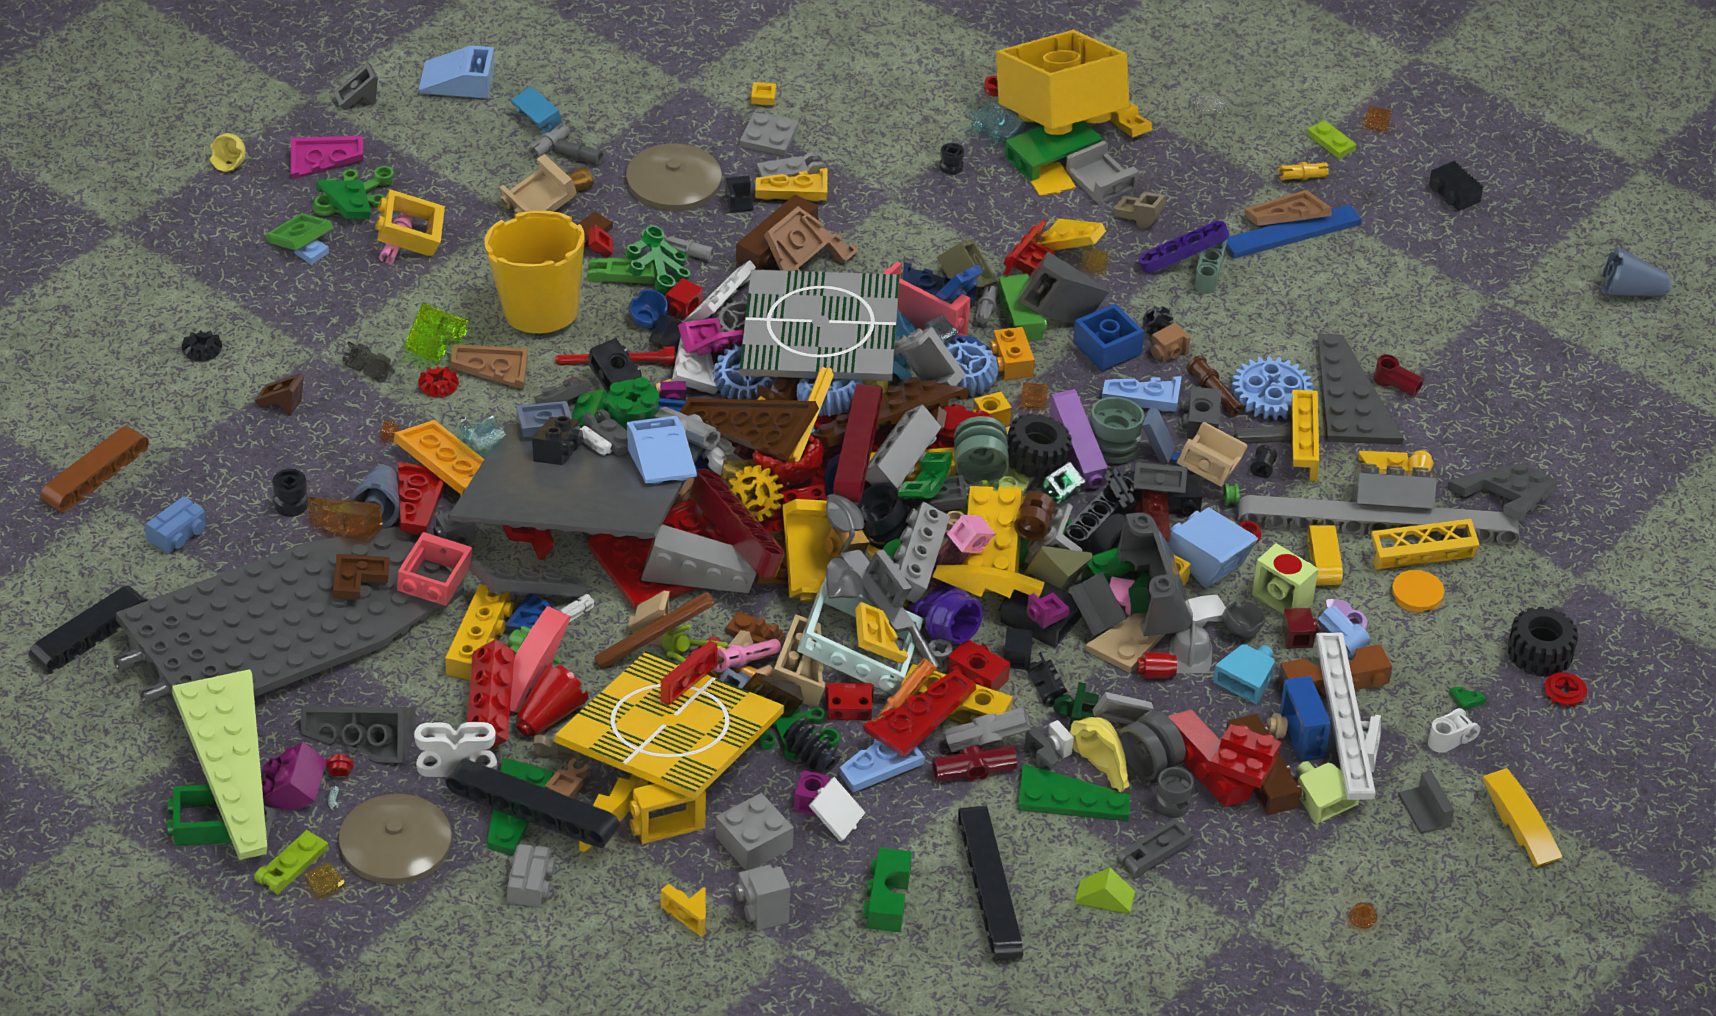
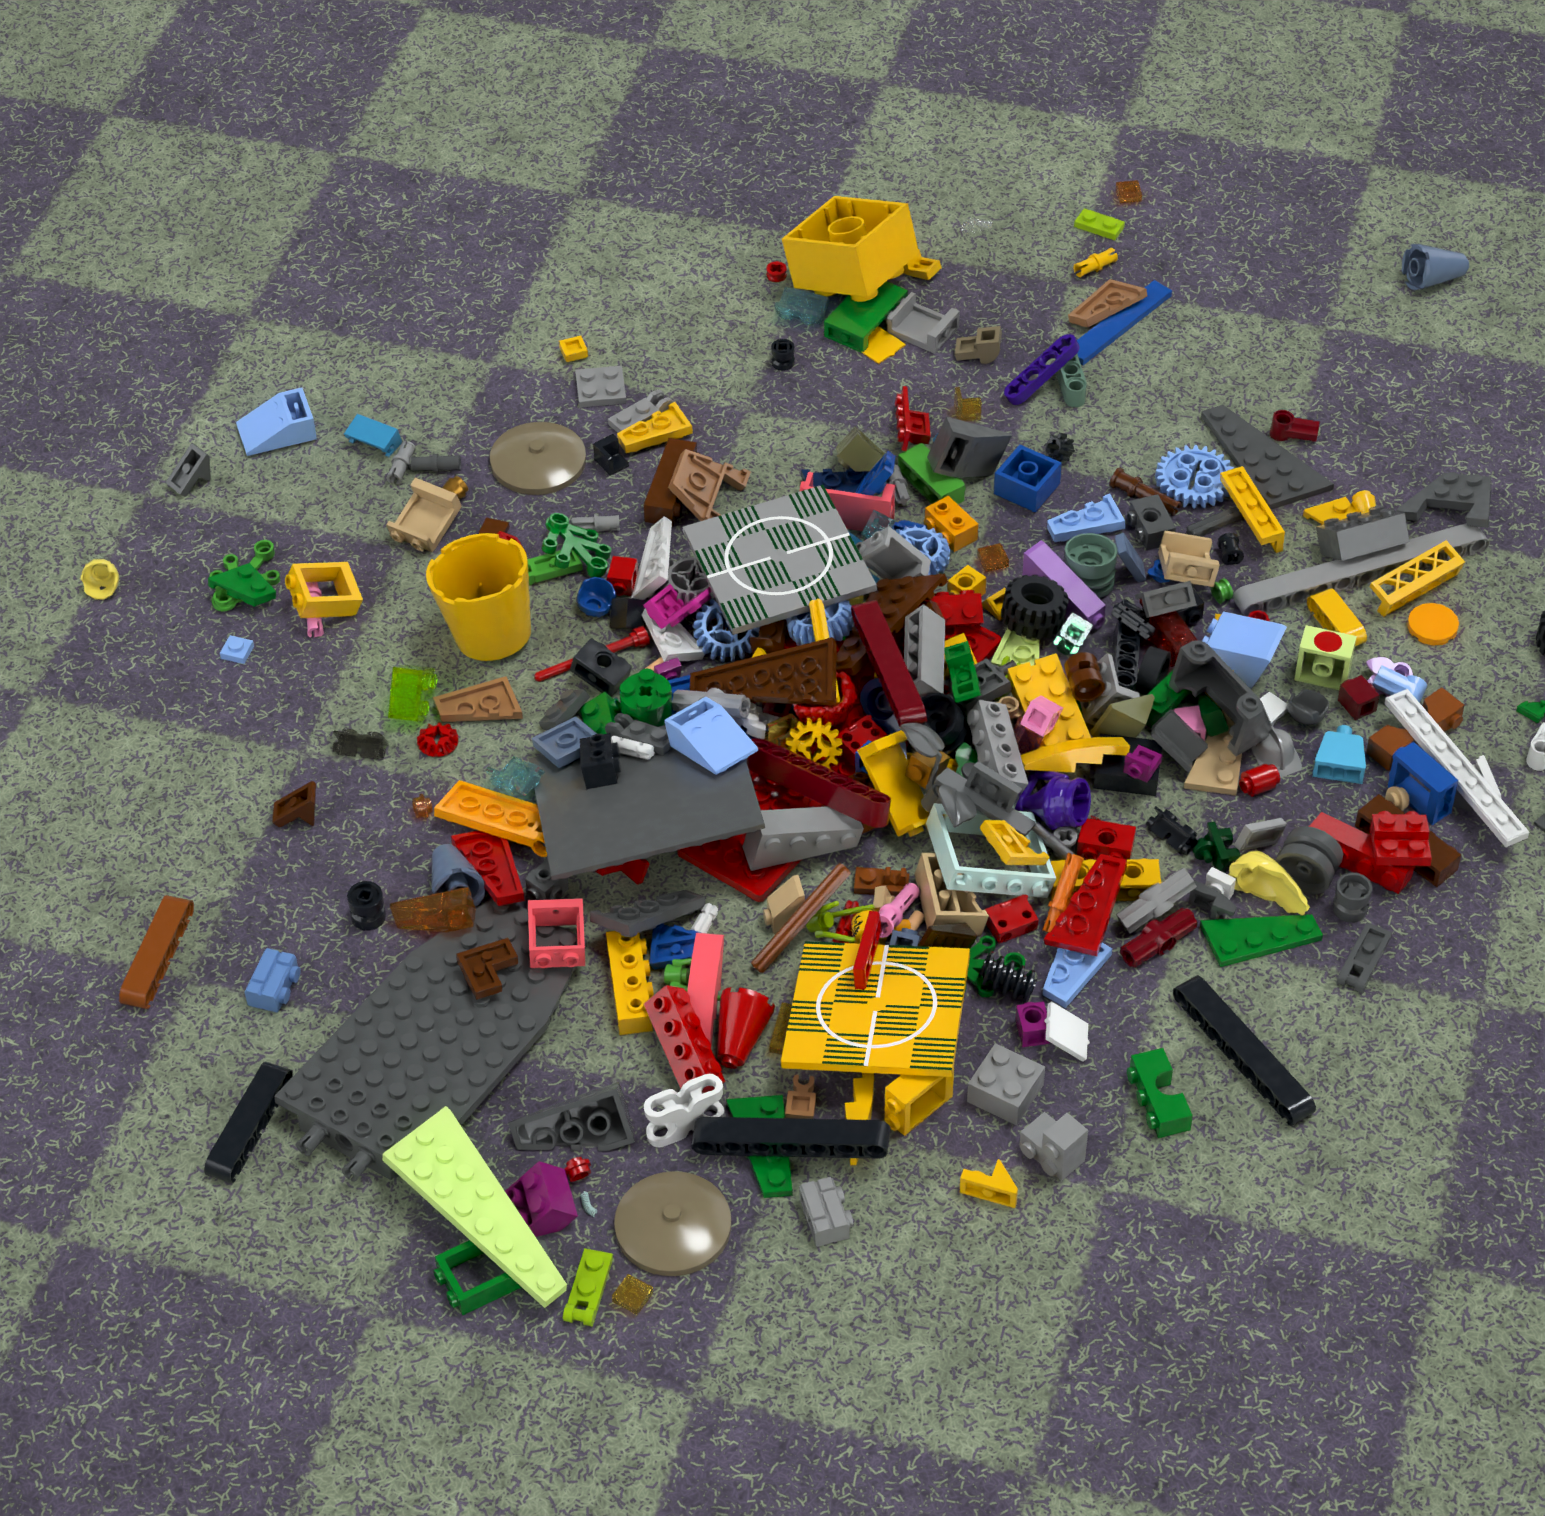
camera: 20 degrees left, 5 degrees up
(200, 352) = (189, 792): black gear -> none
(299, 231) = (216, 635): bright green tile -> none
(321, 154) = (192, 548): dark pink wing -> none
(545, 746) = (769, 1070): dark tan plate -> none
(981, 450) = (991, 629): sand green wheel -> none
(1018, 647) = (1131, 808): black panel -> none
(1071, 234) = (936, 391): yellow wing -> none
(1106, 891) = (1347, 1018): lime slope -> none
(1170, 343) = (1082, 465): medium nougat brick -> none
(1323, 791) = (1476, 845): yellowish green torso -> none
(1456, 185) = (1233, 232): black brick -> none

